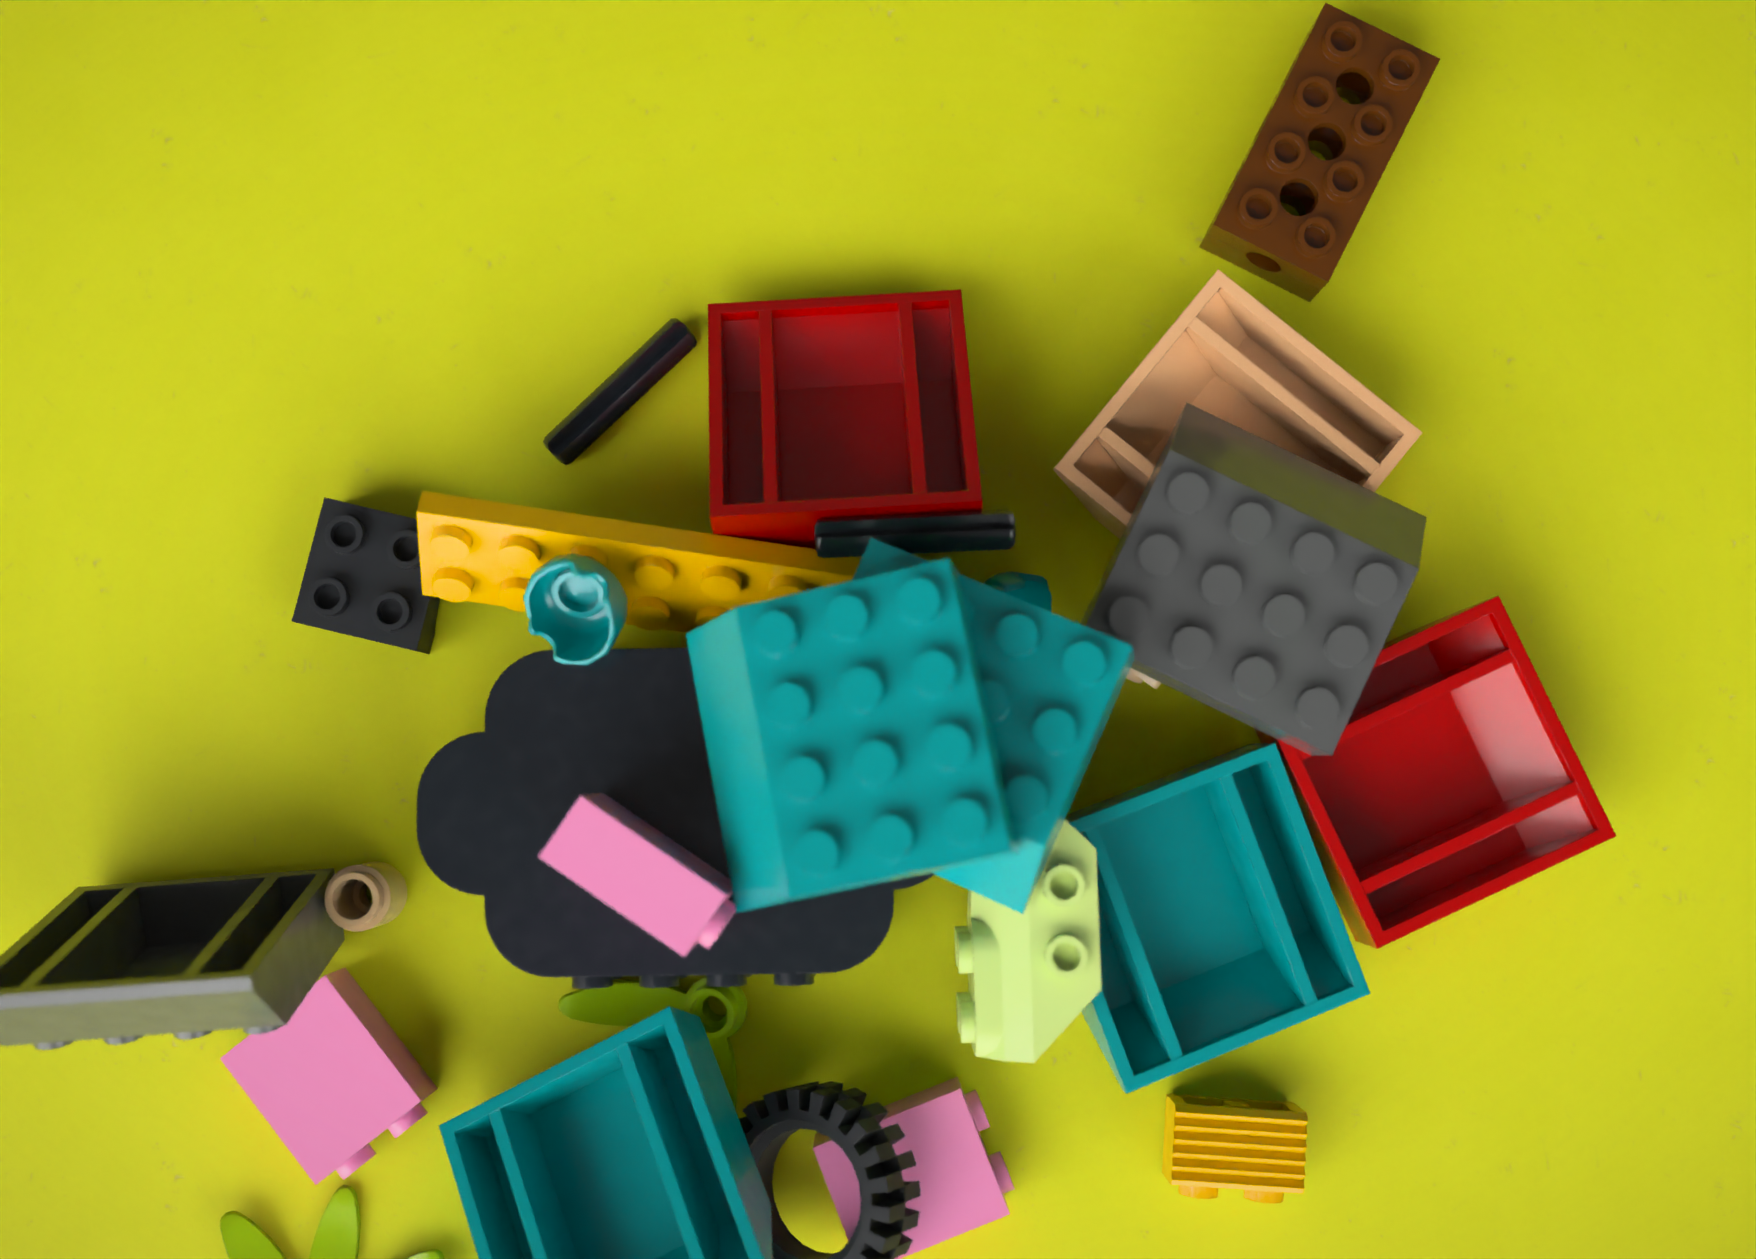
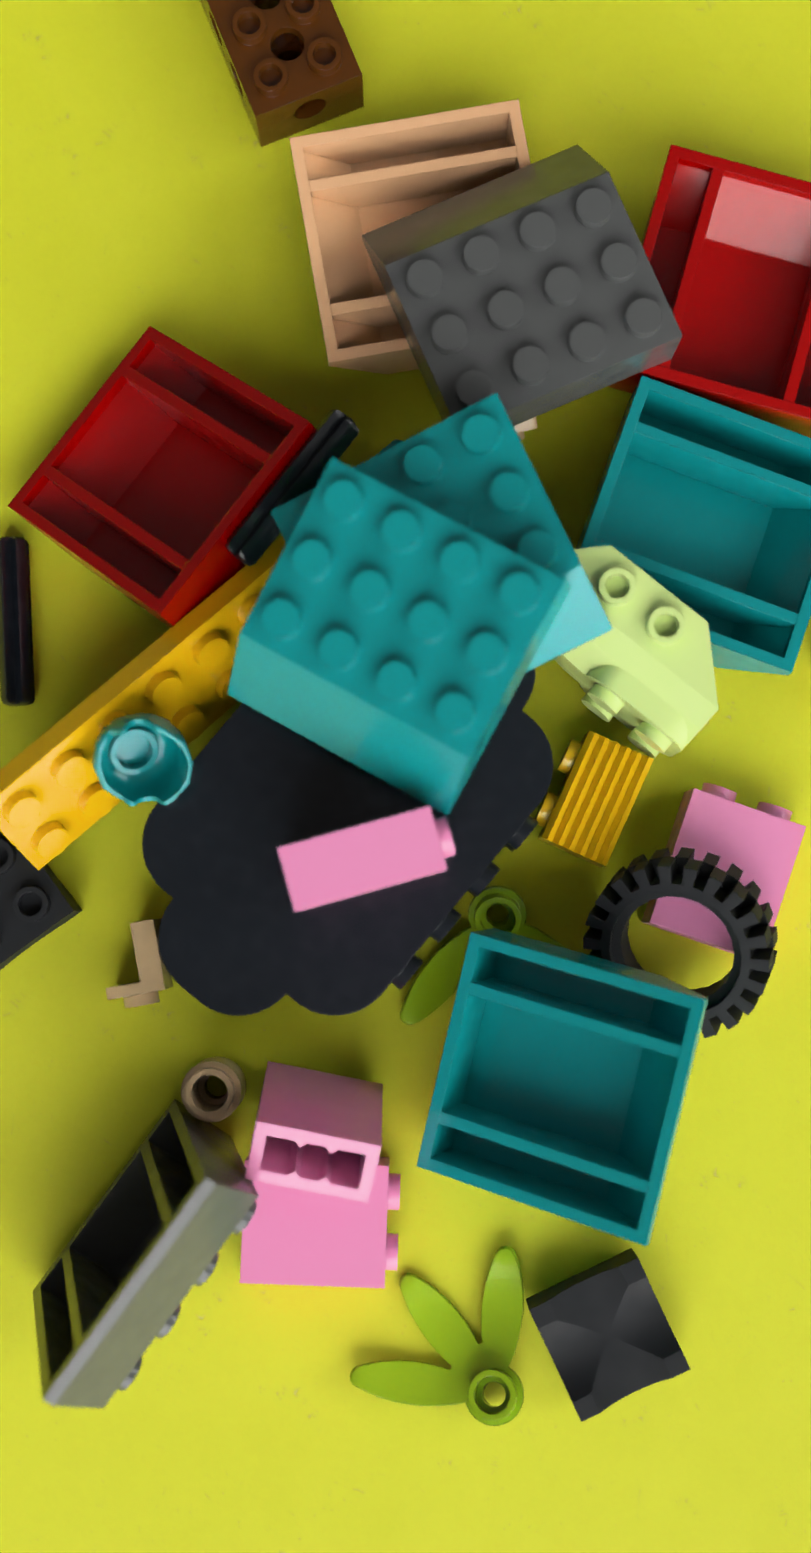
camera: 50 degrees left, 0 degrees up
(394, 1018) = (317, 1132): none -> bright pink brick
(408, 765) = (150, 966): none -> tan bracket
(881, 1006) = (593, 798): none -> yellow brick

